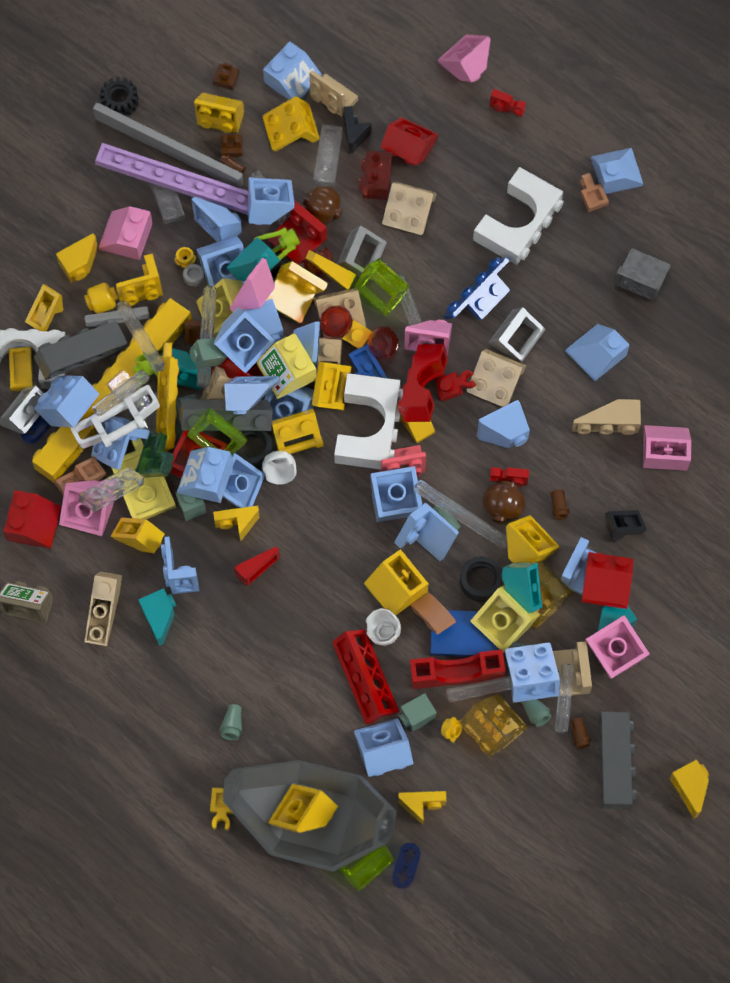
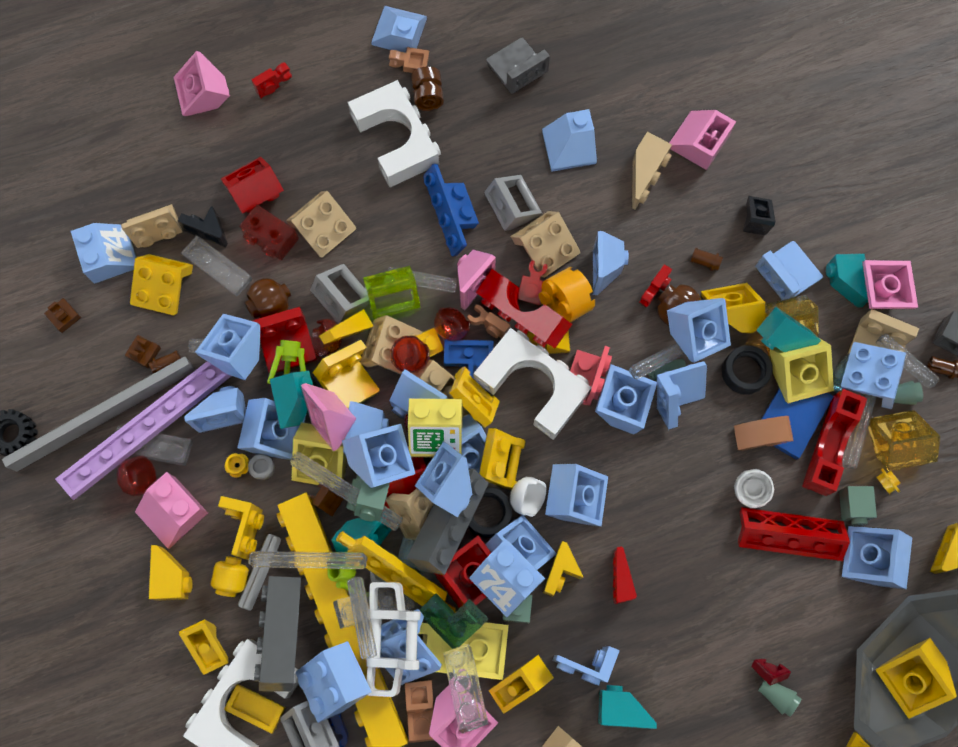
camera: 60 degrees left, 5 degrees up
(137, 194) = (136, 475): none -> clear red hair
(219, 112) = (99, 343): yellow slope -> none
(223, 425) = (456, 538): clear neon green tile -> none
(246, 708) = (769, 672): none -> dark red tile
(302, 503) = (576, 494): none -> light blue slope
(396, 583) = (715, 450): yellow slope -> none
(401, 374) = (494, 325): none -> nougat plate
(454, 410) = (567, 294): none -> light orange brick
(486, 518) = (700, 327): none -> light blue slope
(575, 217) = (427, 88): none -> reddish brown wheel
(607, 580) = (818, 256): red slope -> none

